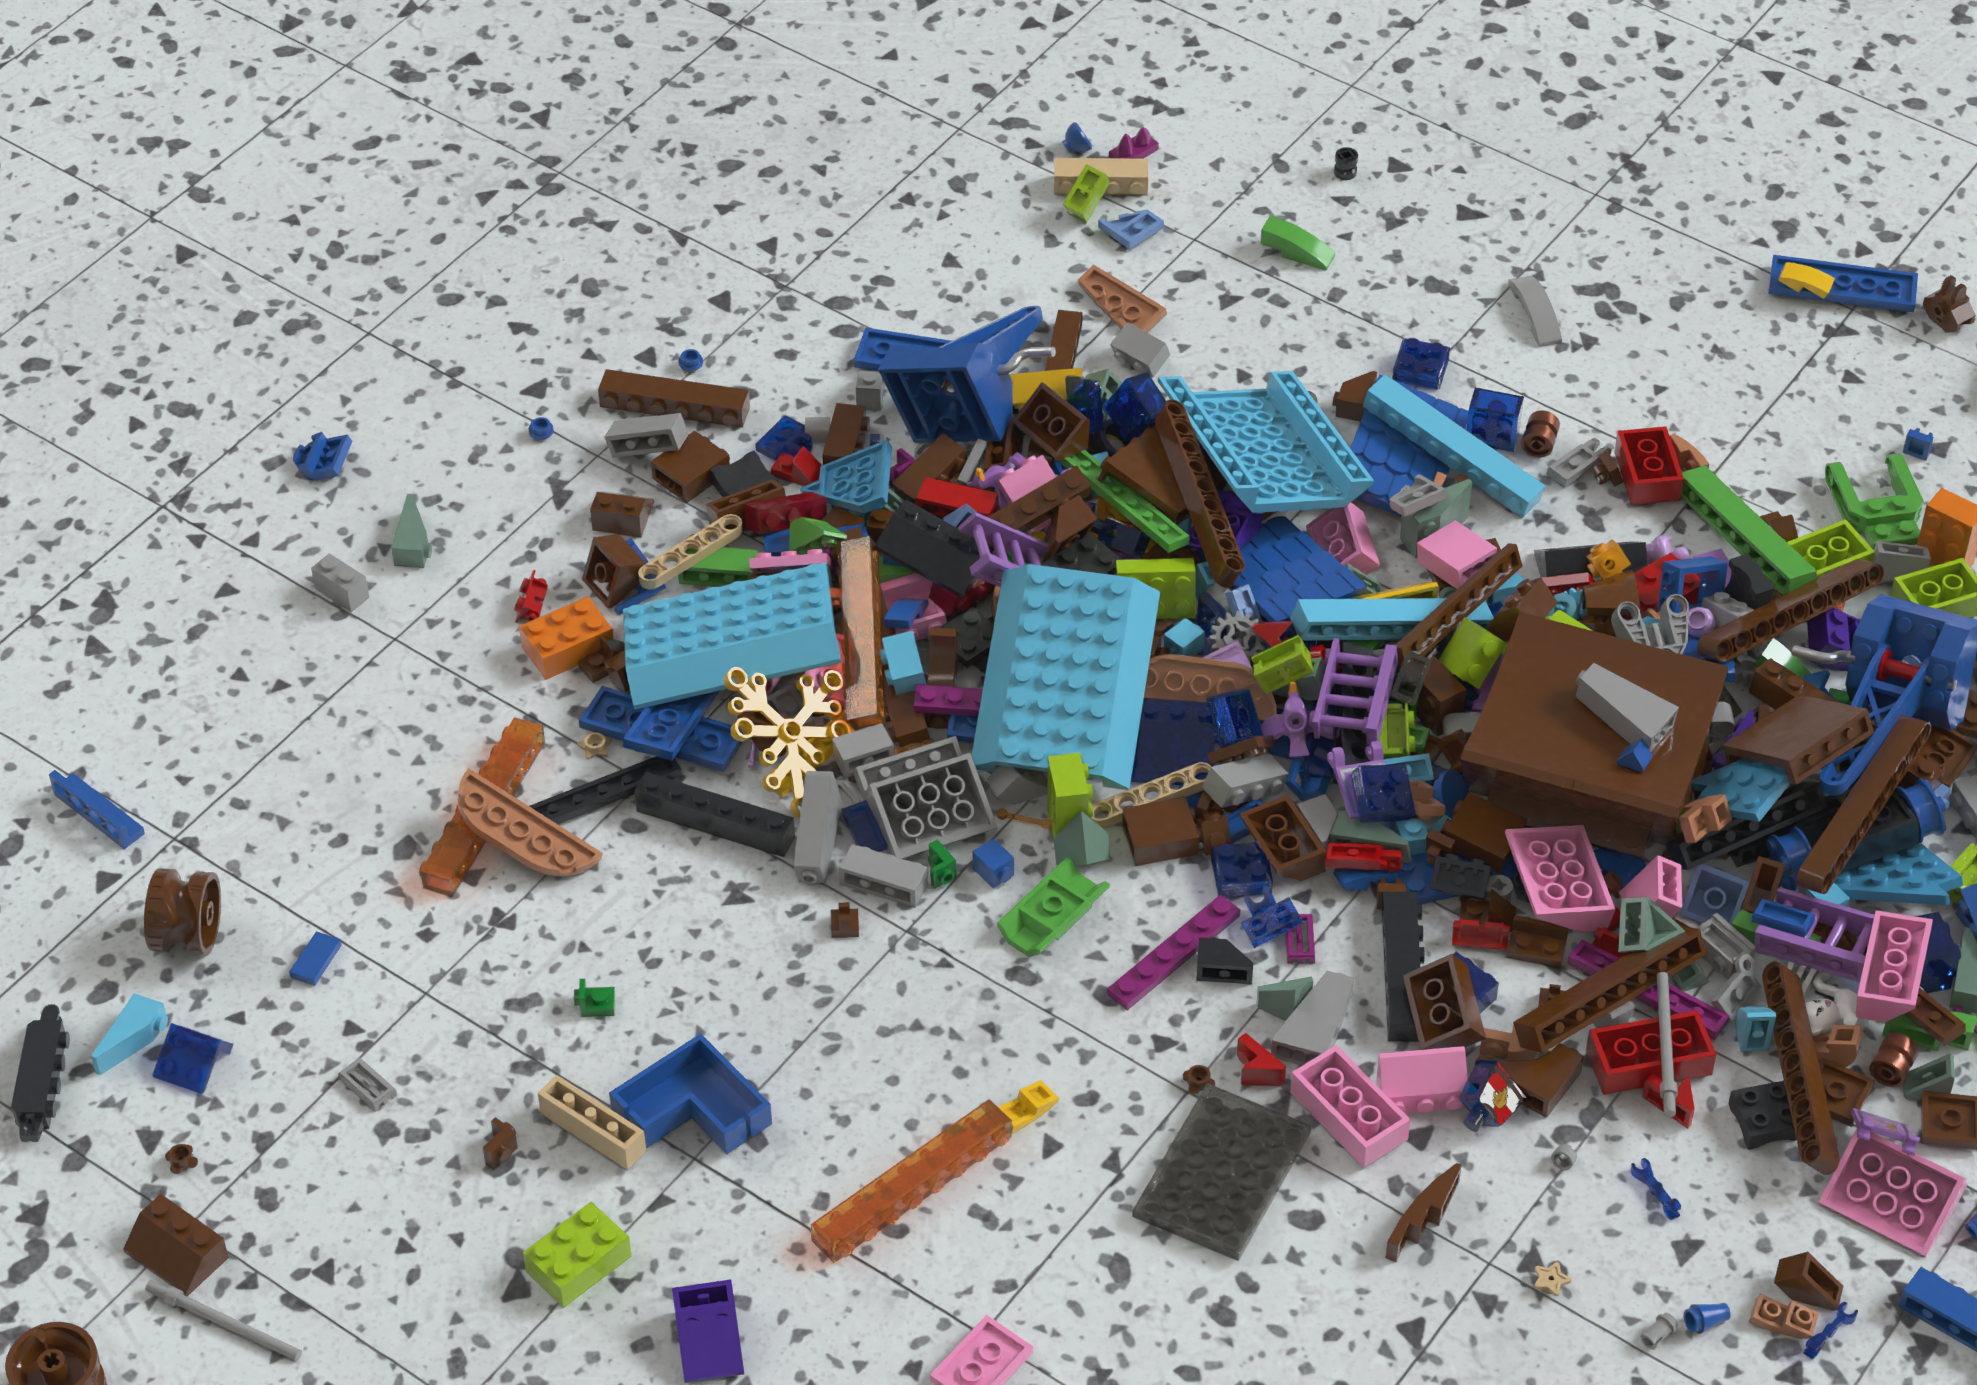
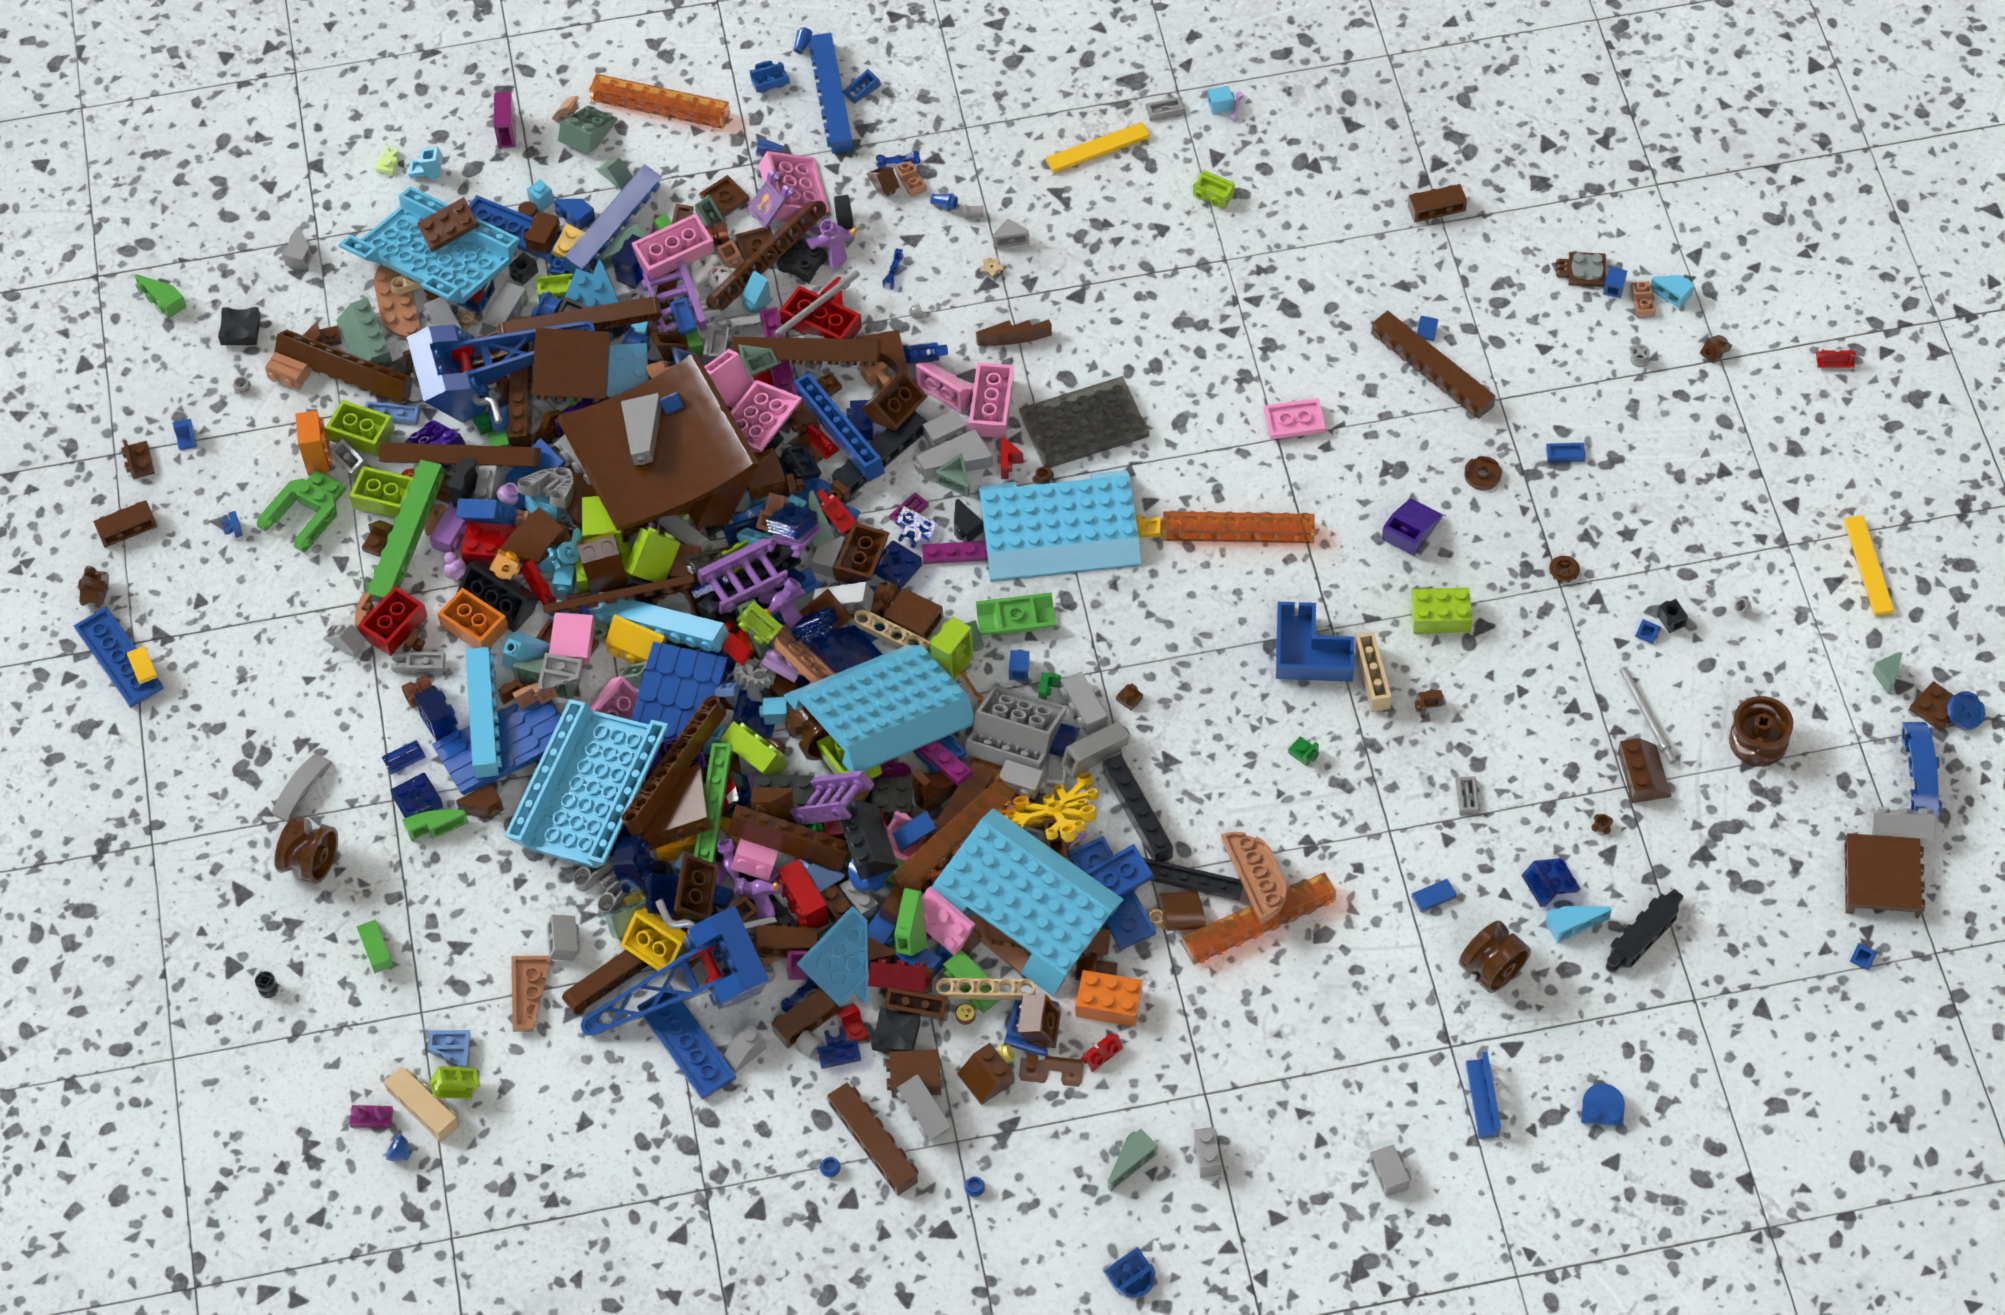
camera: 135 degrees left, 10 degrees up
(141, 684) = (1390, 1170): none -> light grey brick
(553, 574) = (1071, 1069): none -> reddish brown piece
(571, 757) = (1182, 910): none -> reddish brown slope
(622, 529) = (1006, 1053): none -> light yellow plate
(903, 661) = (951, 797): medium azure brick -> none
(1118, 1031) = (1060, 526): none -> medium azure slope
(1364, 1039) = (944, 428): none -> light grey brick
(1379, 352) = (434, 822): none -> bright green slope
(1445, 244) = (306, 849): none -> reddish brown piece
(1452, 748) = (717, 530): reddish brown bracket -> none
(1467, 932) = (839, 427): none -> blue brick
(1487, 373) = (405, 759): none -> clear blue tile
(1488, 510) = (523, 648): none -> medium azure slope
(1576, 516) = (472, 620): none -> orange brick
(1577, 1333) = (1010, 235): none -> light grey slope
(1676, 423) = (345, 638): none -> light grey slope
(1762, 1152) = (831, 237): none -> medium lavender animal
(1800, 1185) = (843, 211): none -> black tyre

